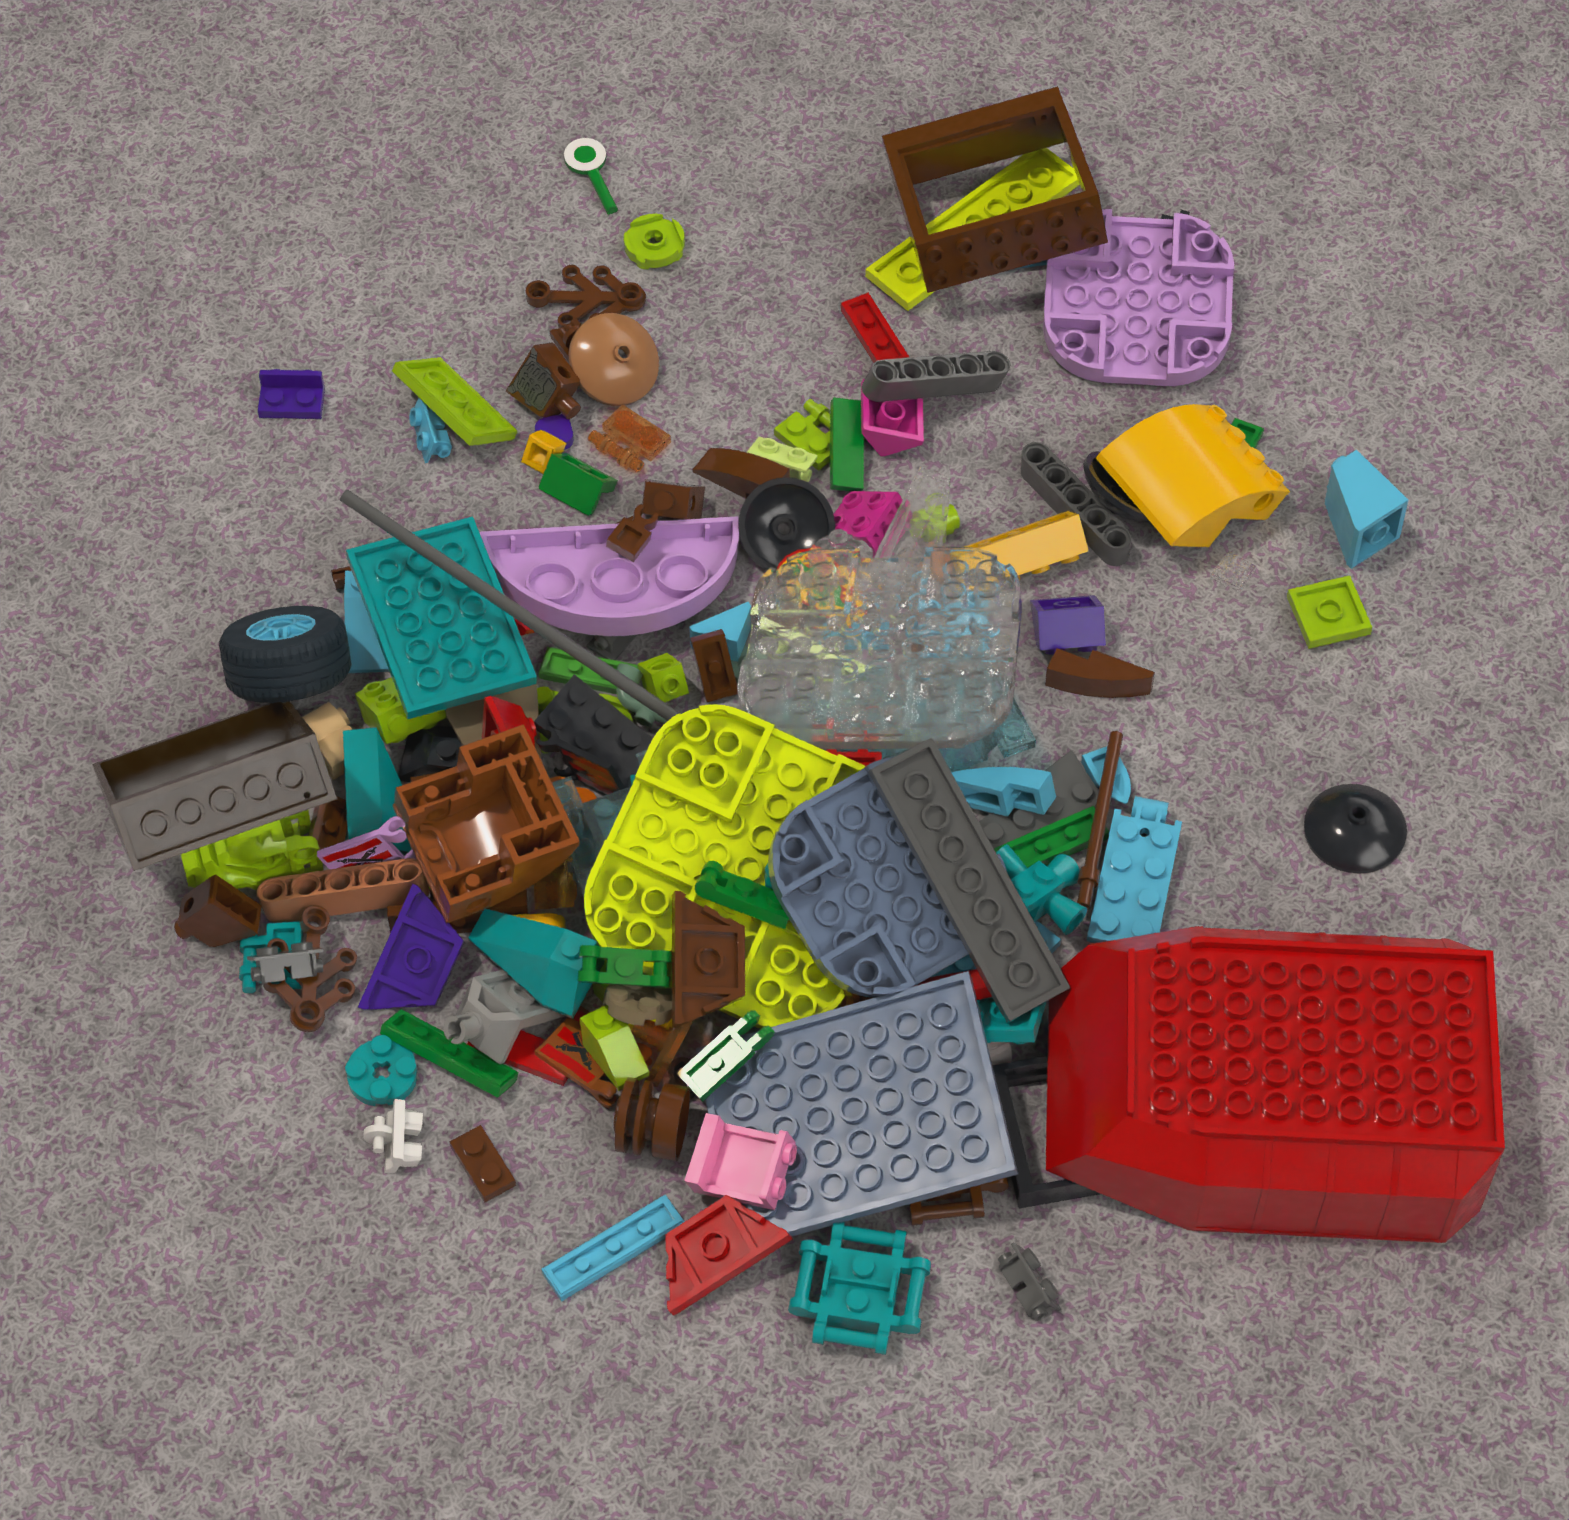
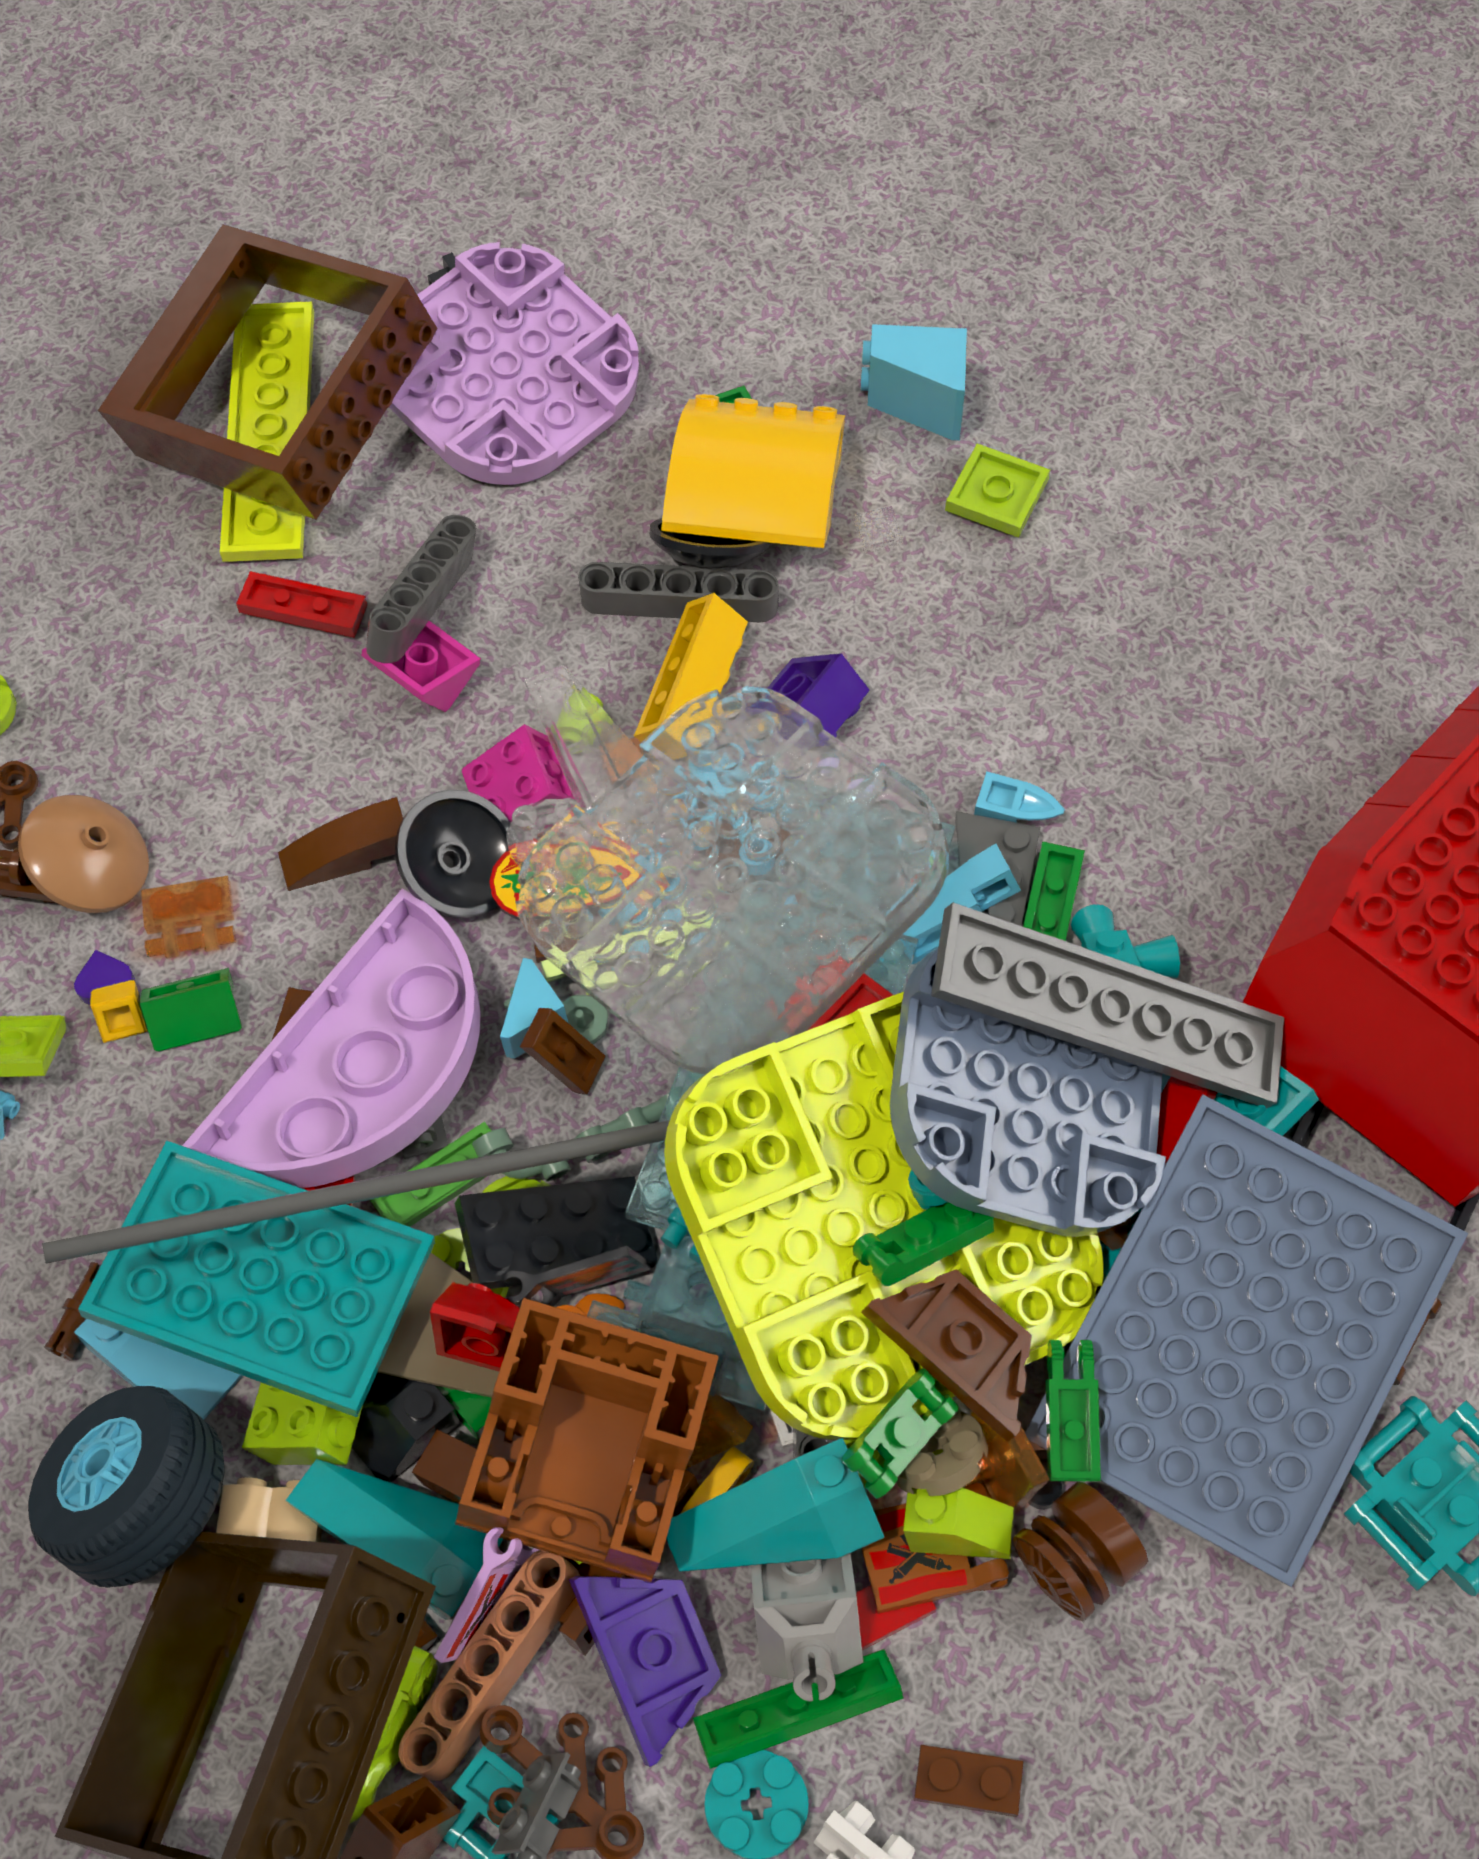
camera: 50 degrees left, 5 degrees up
(546, 383) = (45, 940): torso -> none
(612, 1248) = (1187, 1719): medium azure tile -> none
(632, 536) = (334, 1005): reddish brown plate -> none
(664, 677) = (529, 1112): lime brick -> none
(673, 499) = (312, 936): reddish brown torso -> none
(715, 1249) = (1288, 1608): red wing -> none
(740, 1163) = (1215, 1498): bright pink panel -> none
(795, 458) = (373, 788): yellowish green hinge -> none
(803, 433) = (362, 758): lime plate -> none
(846, 445) = (412, 727): green tile -> none
(1089, 873) = (1124, 904): reddish brown bar -> none
(1097, 676) = (897, 720): reddish brown slope -> none
(1135, 873) = (1151, 867): medium azure hinge -> none
(1352, 842) = (1244, 667): black dish -> none

